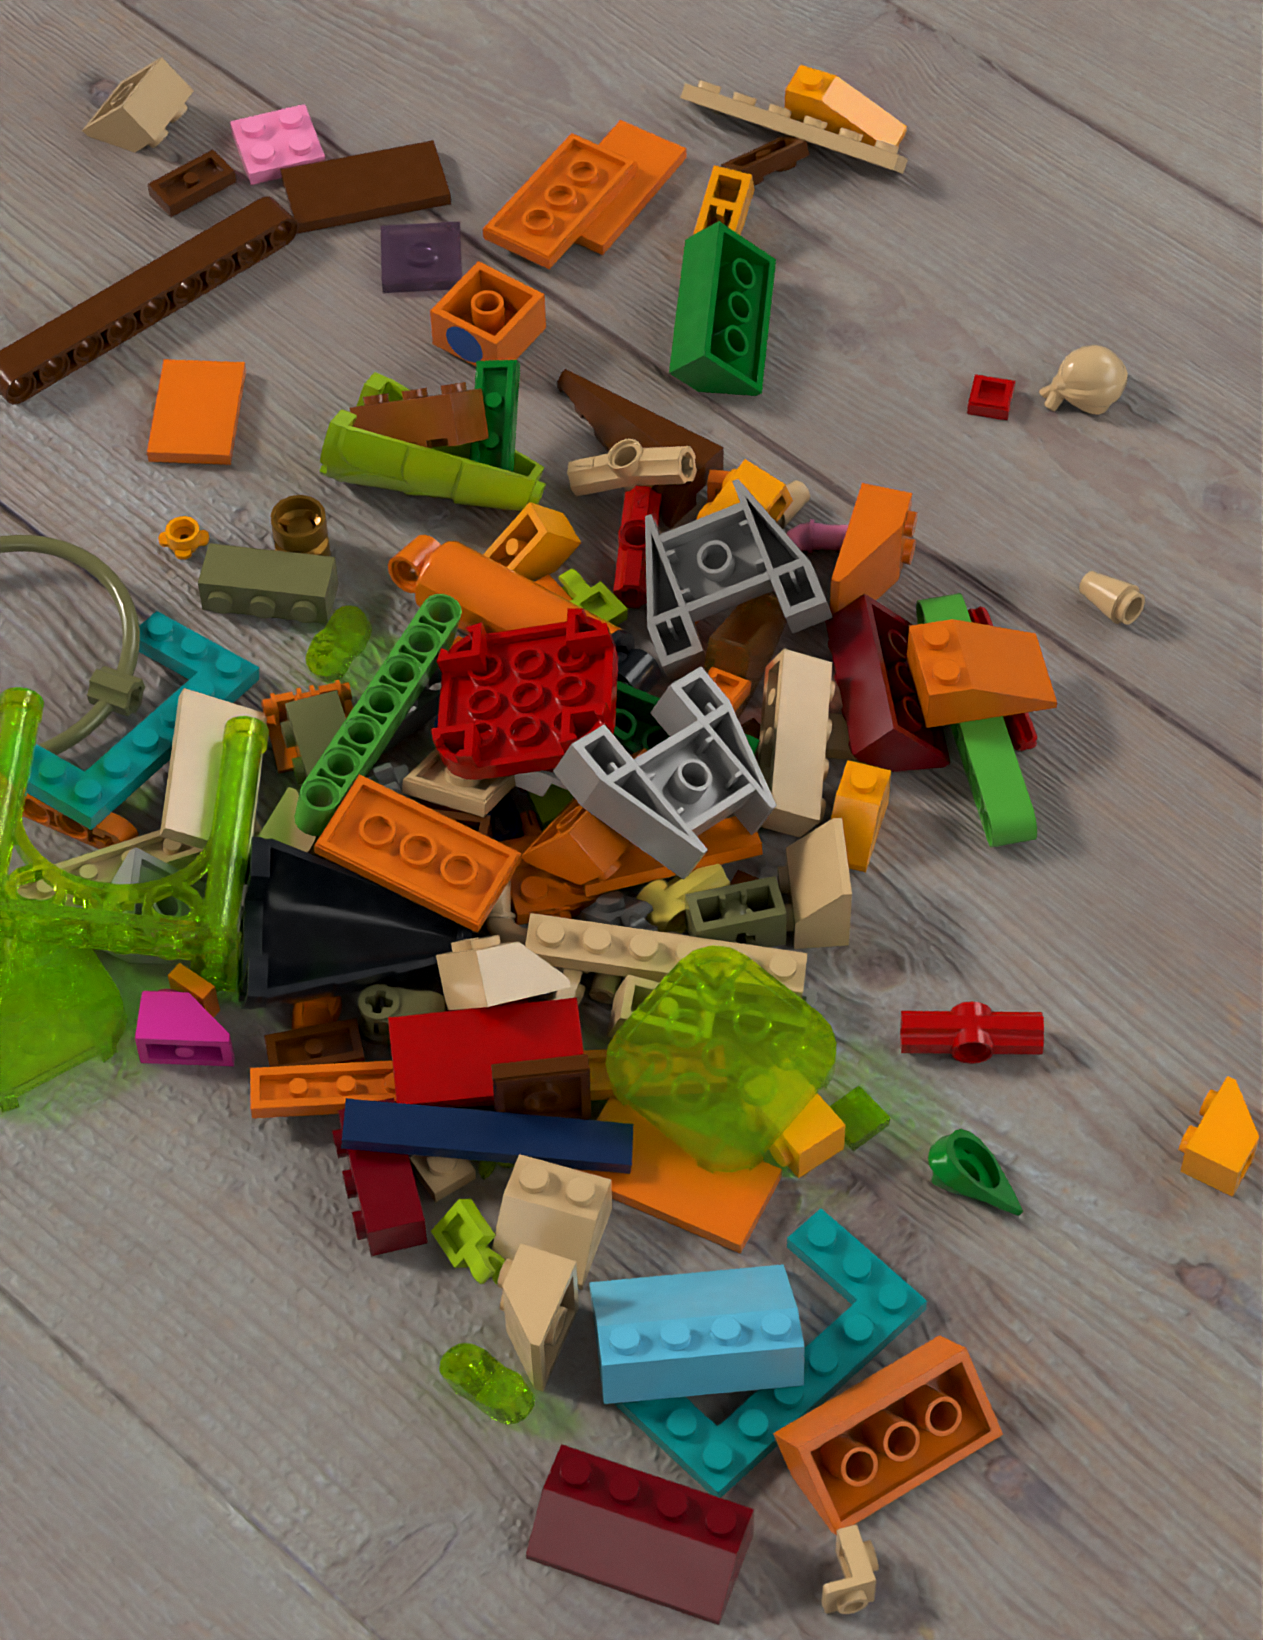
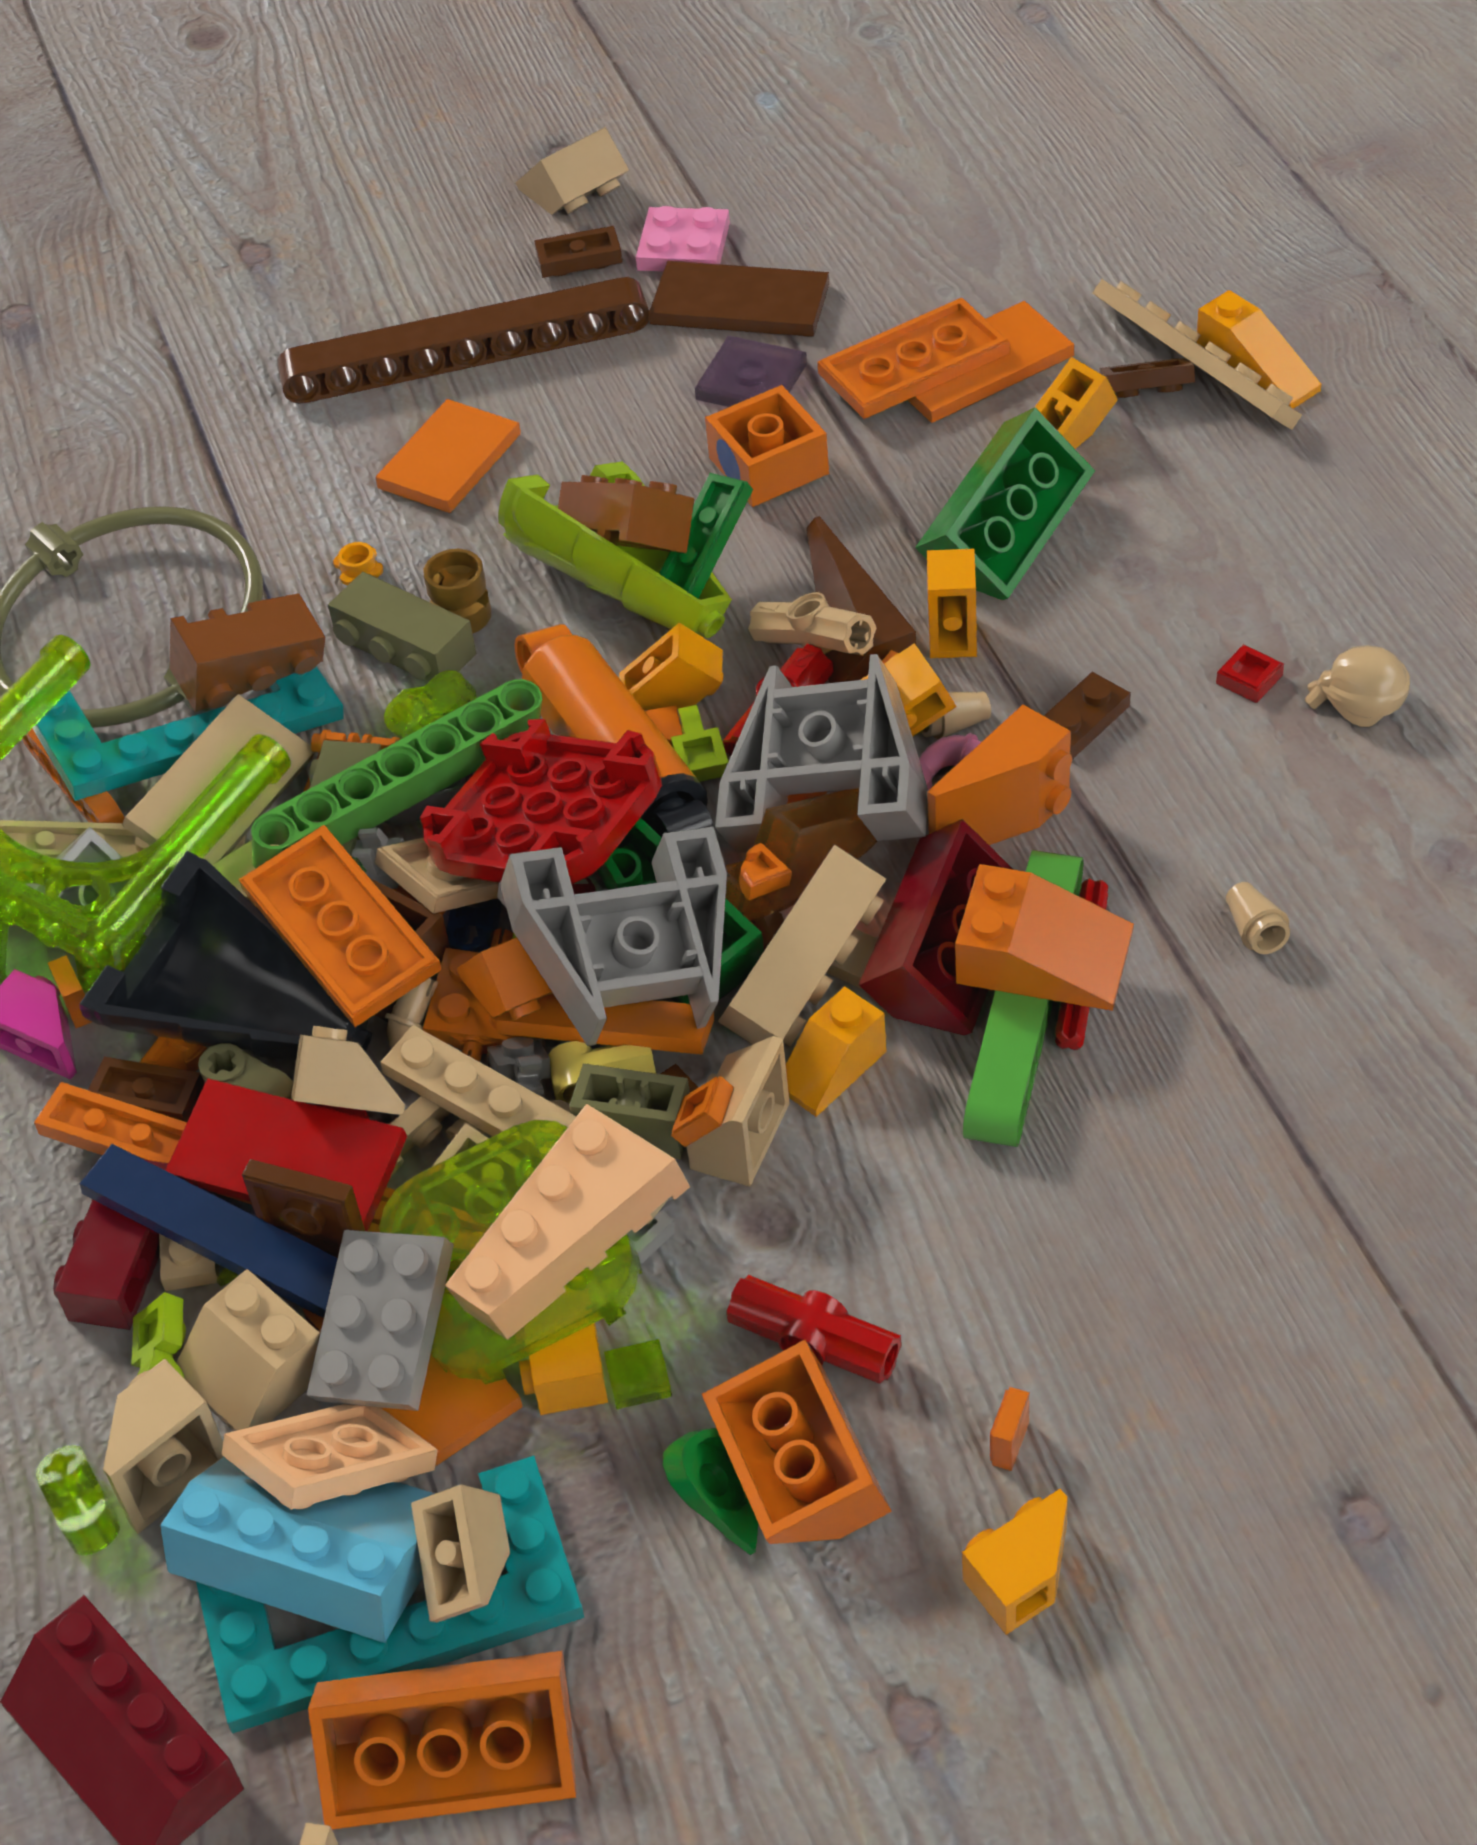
camera: 30 degrees right, 5 degrees down
(165, 649) = (243, 650): none -> dark orange wedge
(655, 1150) = (380, 1320): none -> light grey plate
(679, 1265) = (328, 1453): none -> light nougat plate
(735, 412) = (952, 603): none -> light orange brick
(779, 1001) = (563, 1219): none -> light nougat wedge
(806, 897) = (702, 1111): none -> orange tile
(827, 1295) = (460, 1548): none -> tan slope
(882, 465) = (1089, 710): none -> reddish brown plate
(1022, 1121) = (795, 1450): none -> orange slope
(1158, 1049) = (1009, 1428): none -> orange tile

